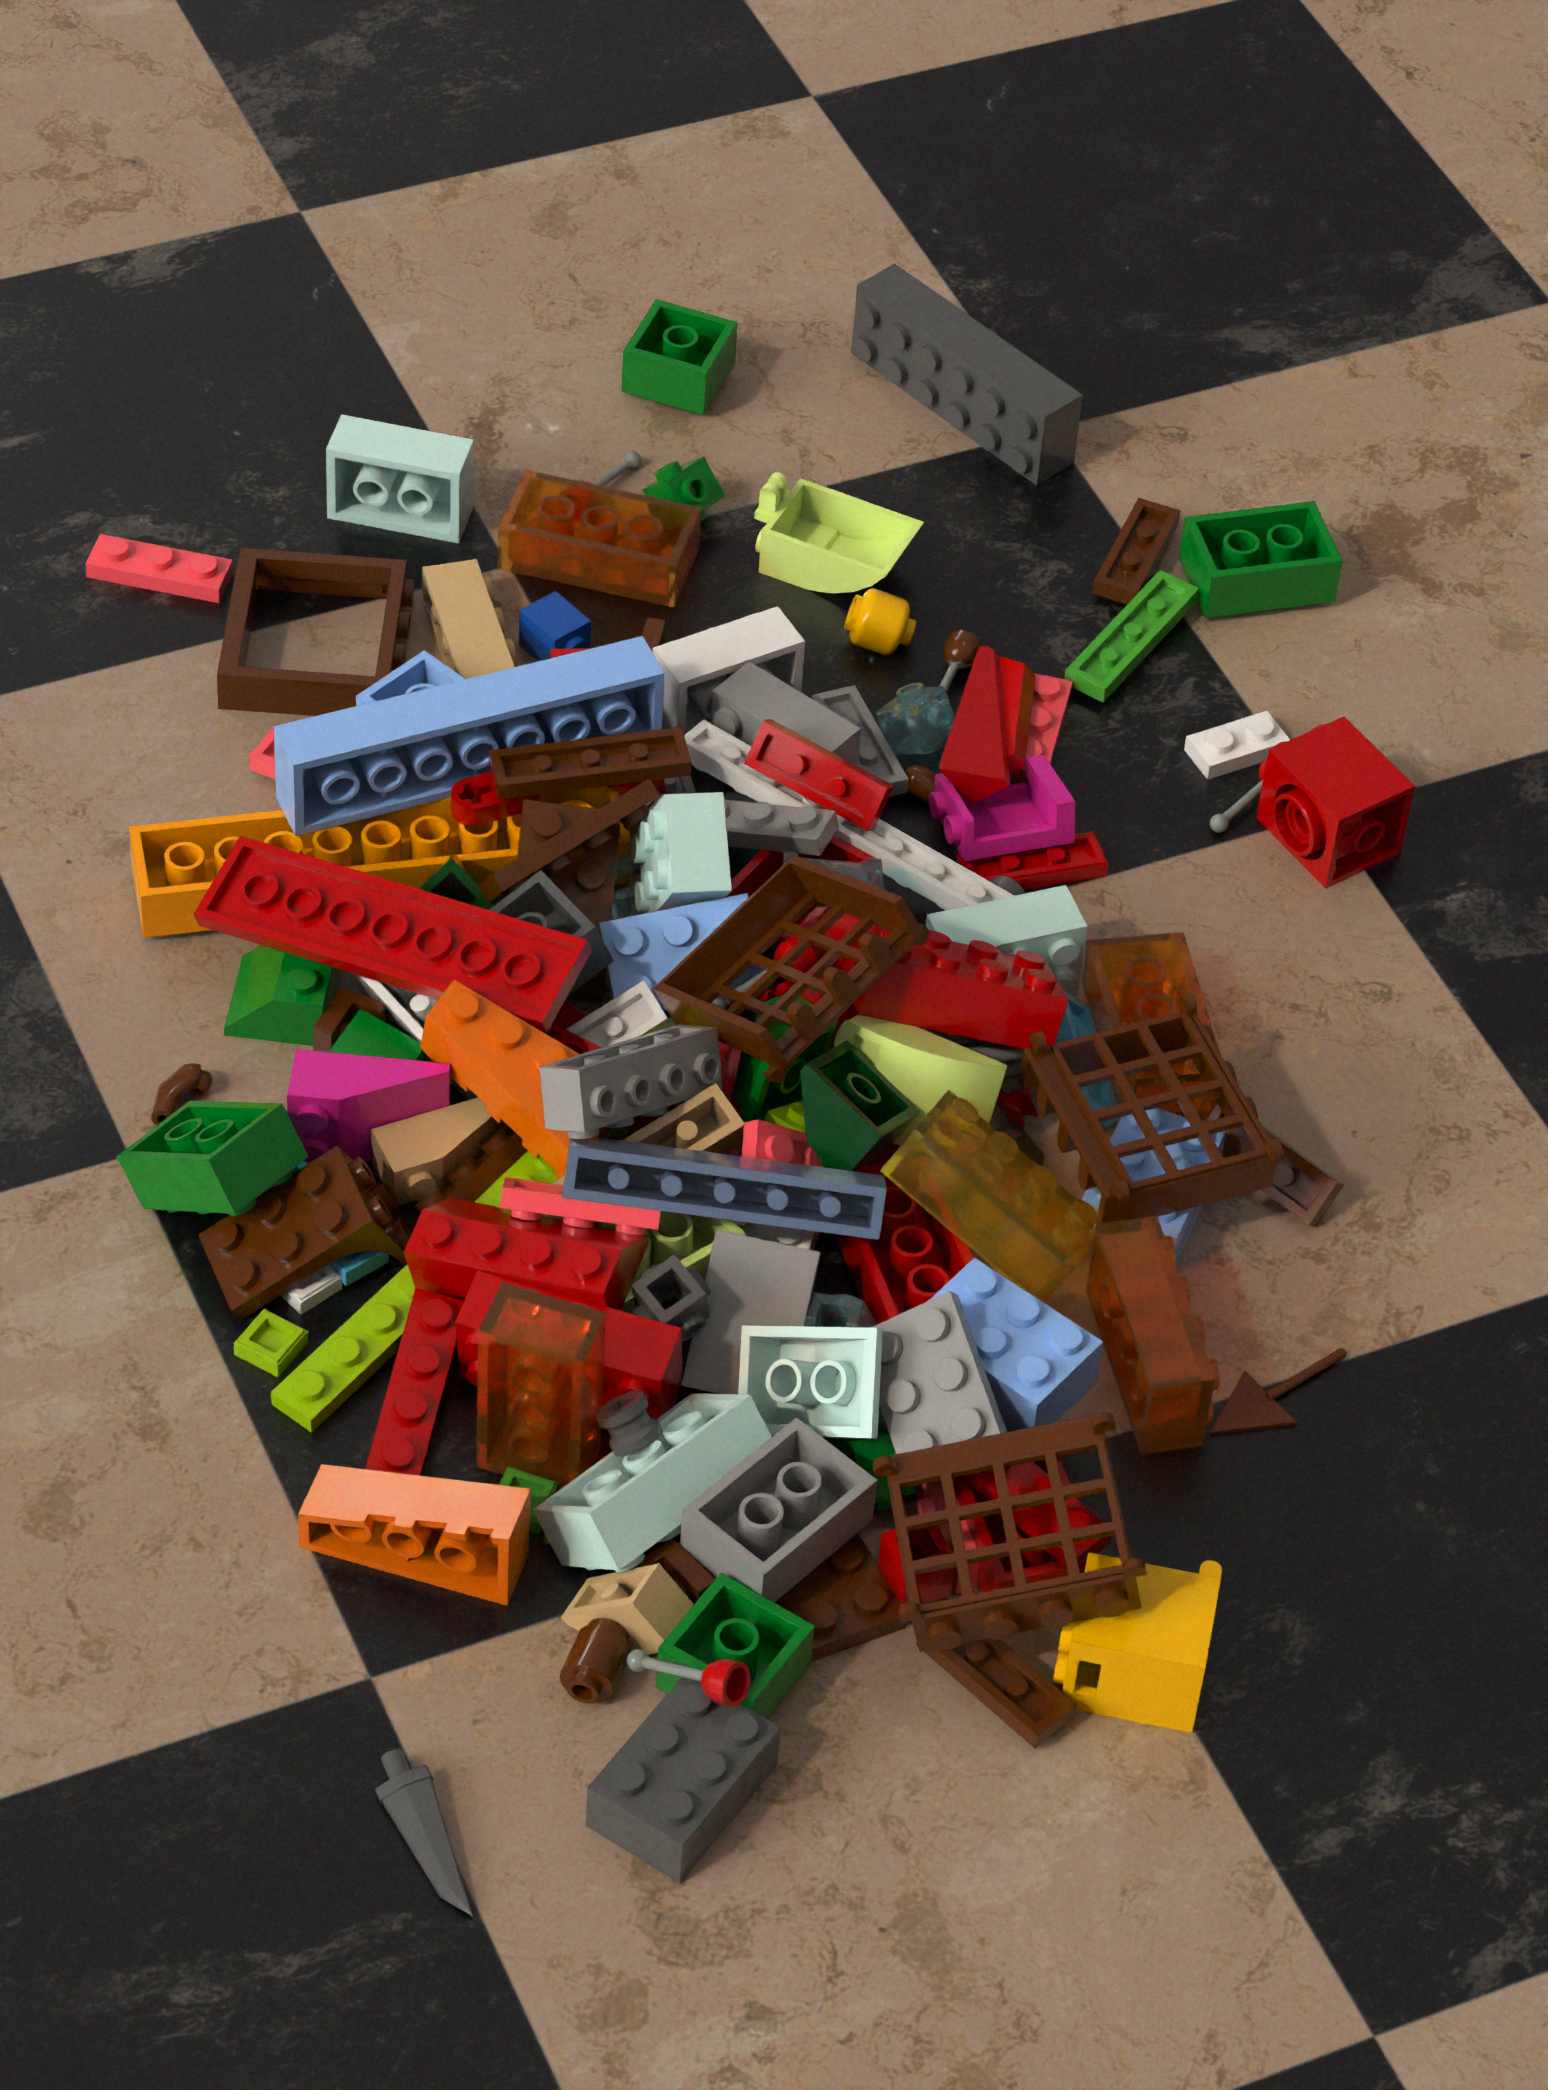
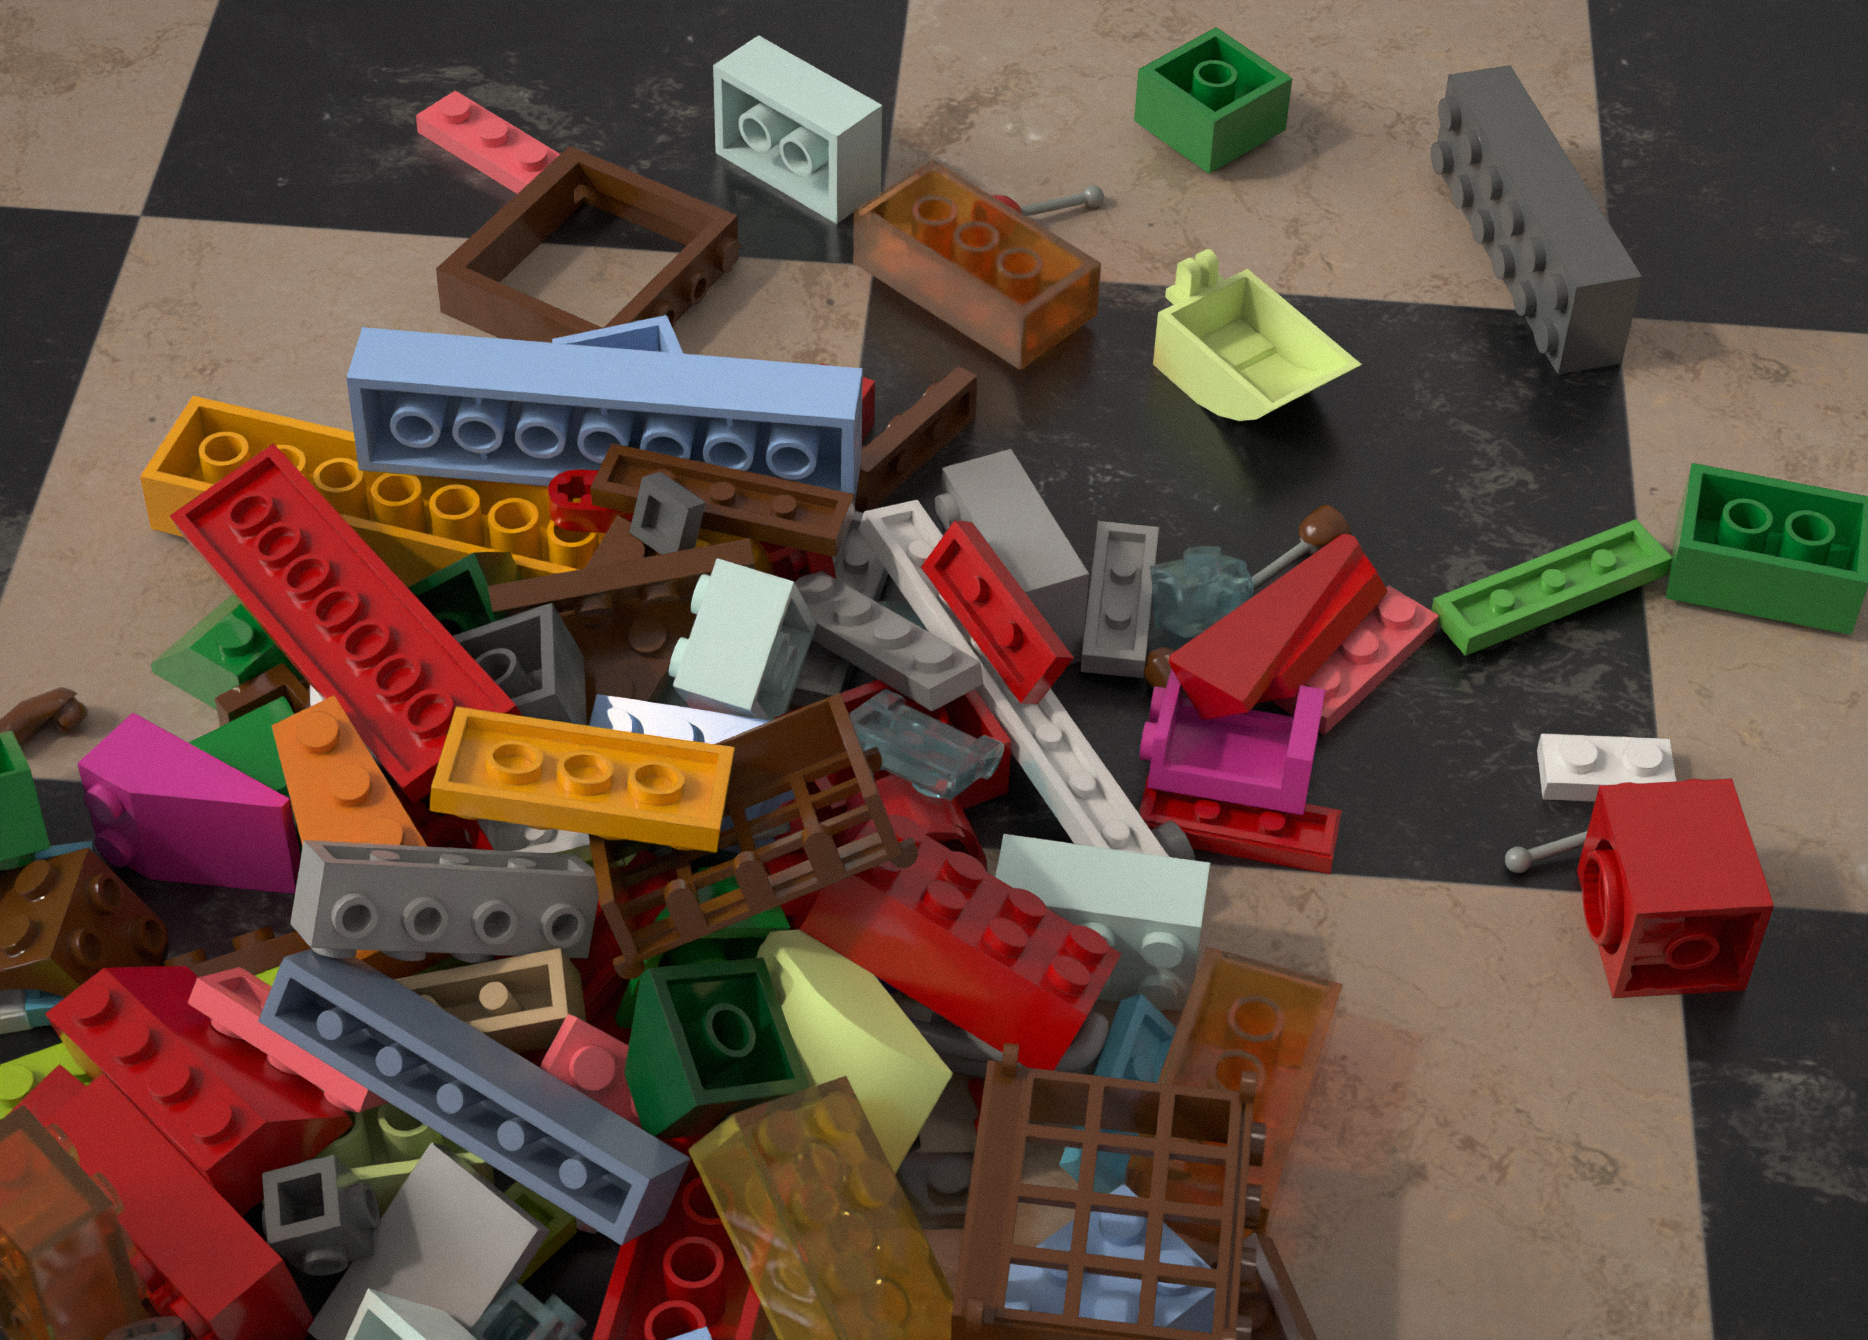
camera: 30 degrees right, 0 degrees up
(424, 1149) = (228, 894): tan slope -> none
(464, 619) = (765, 299): tan brick -> none
(552, 625) = (856, 339): blue brick -> none
(571, 786) = (666, 515): none -> dark grey plate
(671, 968) = (583, 779): none -> light orange plate
(687, 484) = (1116, 240): green brick -> none
(707, 658) = (1045, 433): white brick -> none
(879, 622) = (1243, 464): yellow head -> none
(1136, 551) = (1623, 487): reddish brown plate -> none

